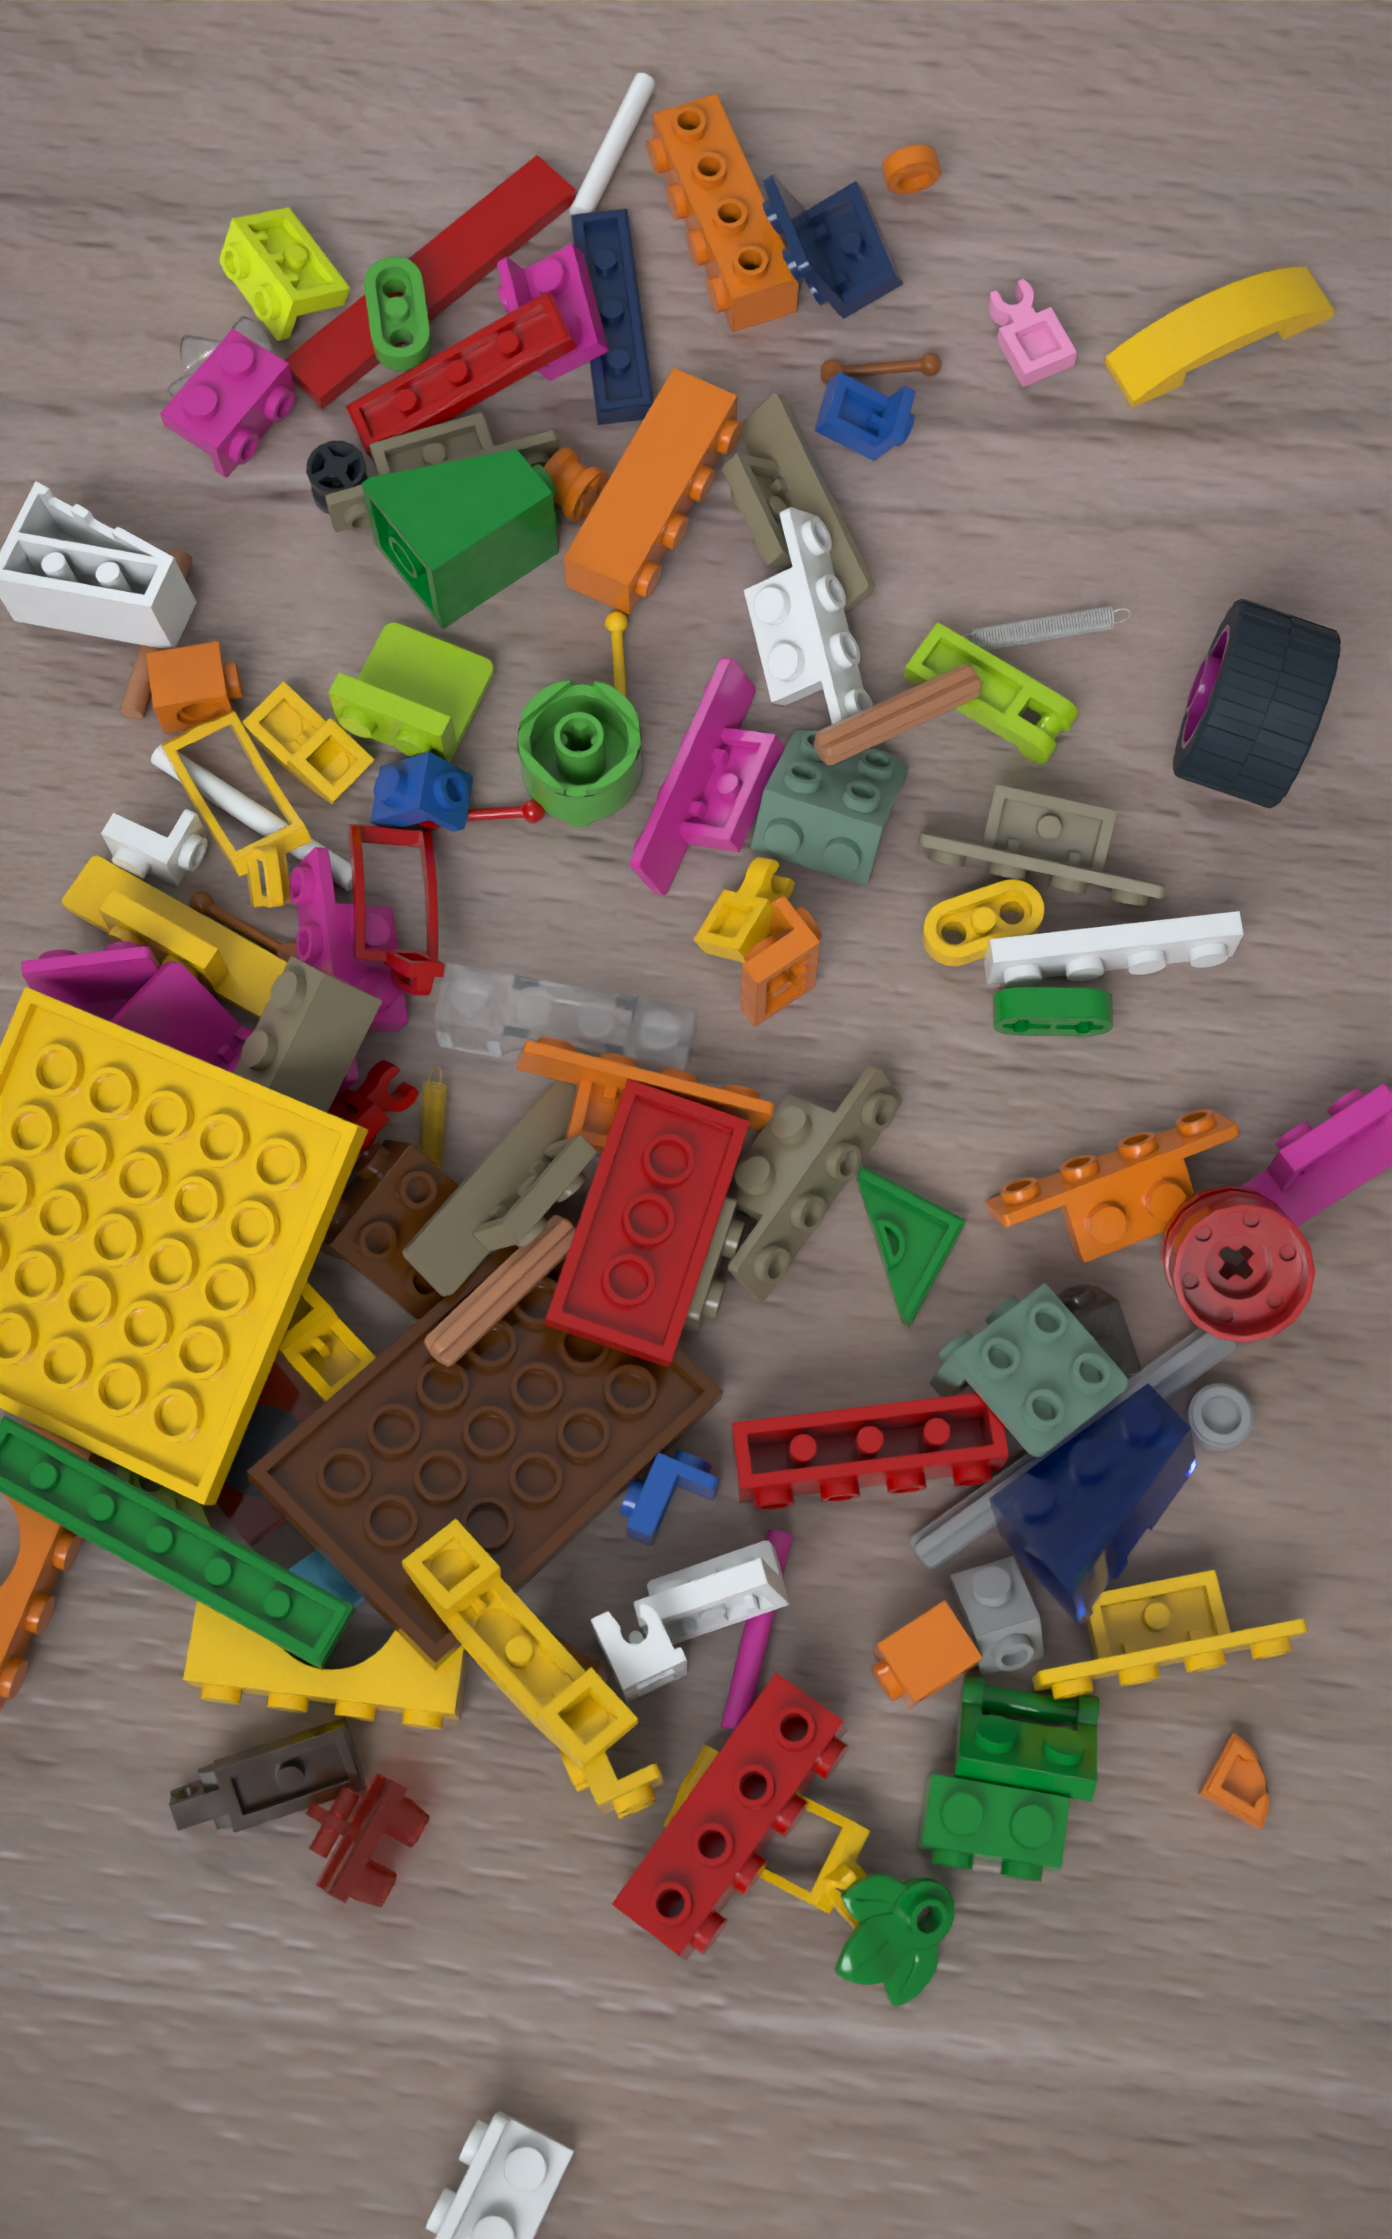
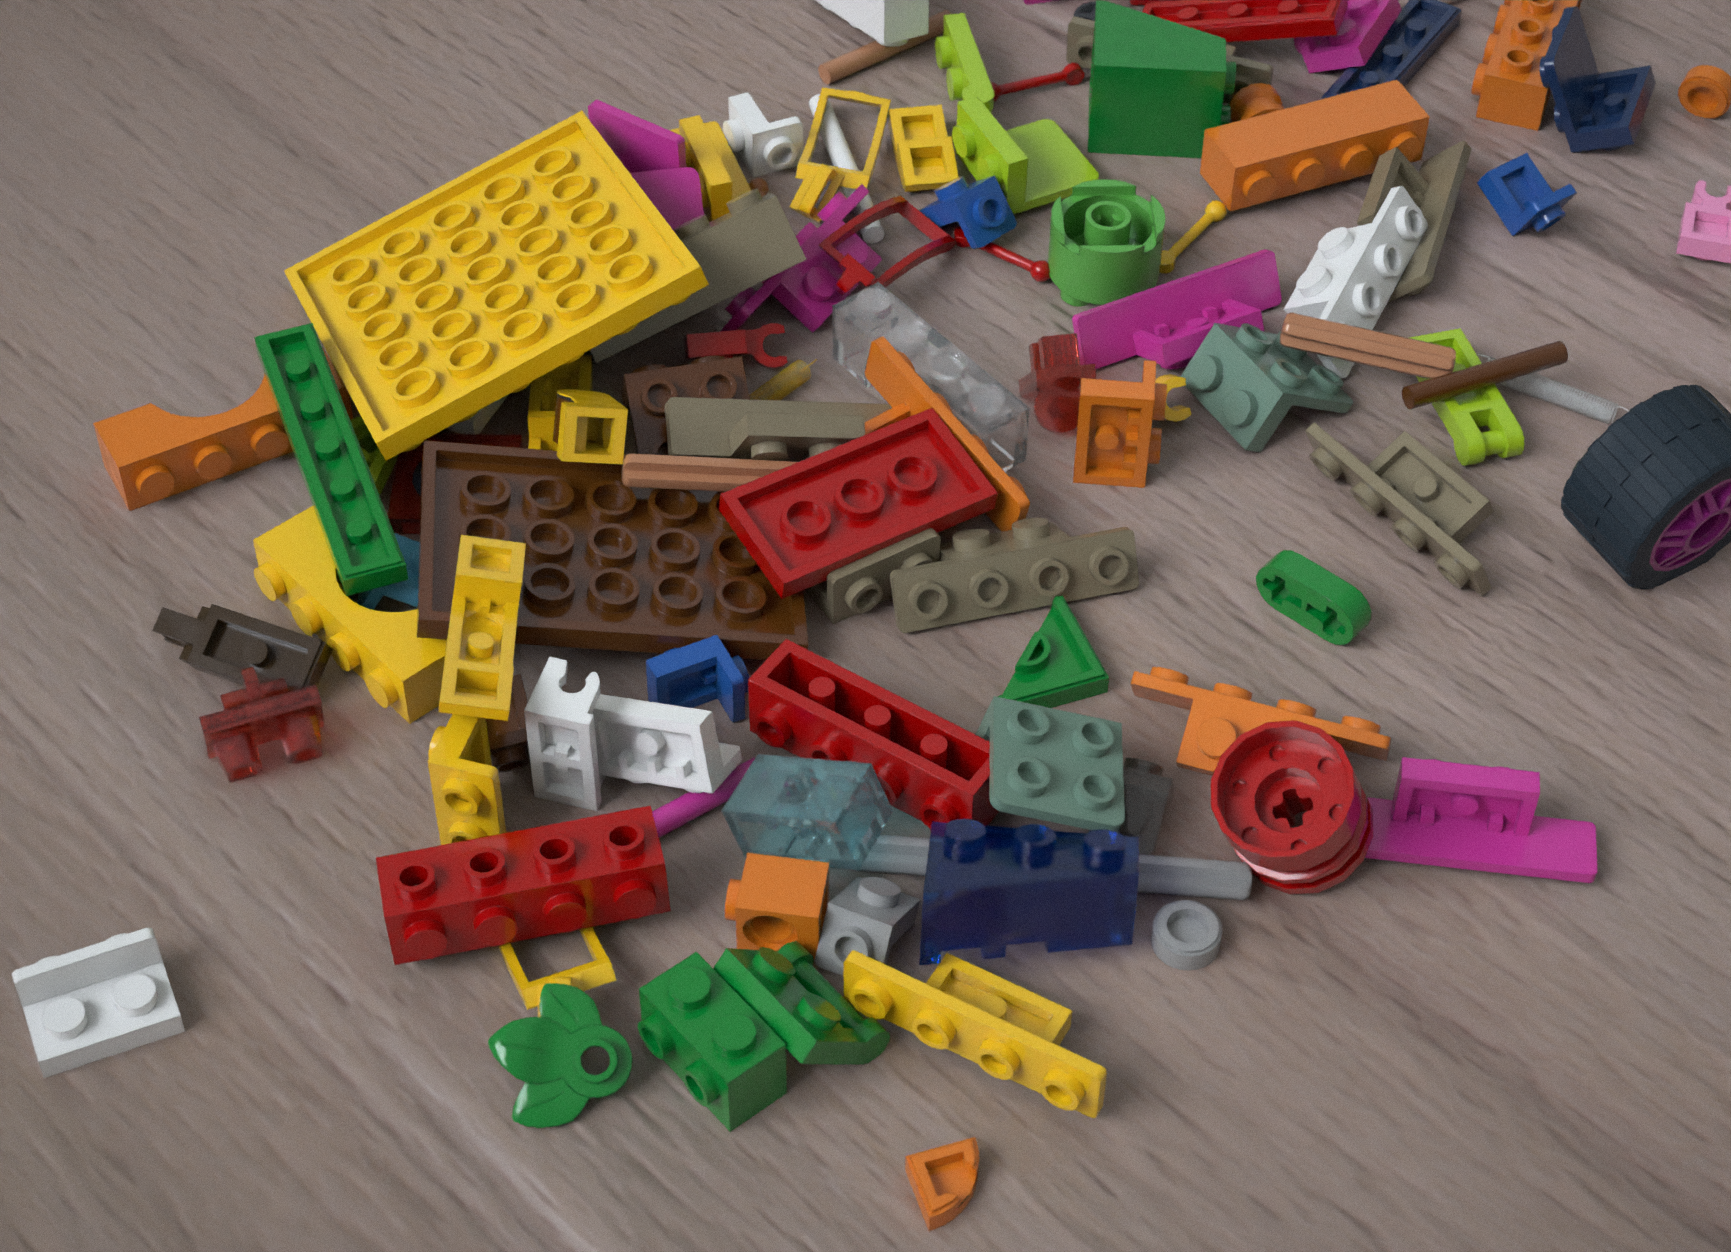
camera: 40 degrees right, 25 degrees down
(192, 685) = (878, 69): orange brick -> none
(273, 626) = (960, 56): none -> lime plate
(301, 620) = (1072, 74): none -> red hinge
(370, 1333) = (589, 427): none -> yellow leg
(672, 944) = (1057, 380): none -> clear red hips
(915, 1562) = (808, 810): none -> clear light blue brick
(928, 364) = (1611, 204): dark orange hinge -> none
(979, 920) = (1313, 516): yellow plate -> none
(1004, 668) = (1484, 375): none -> reddish brown bar
(1131, 946) = (1413, 590): white plate -> none

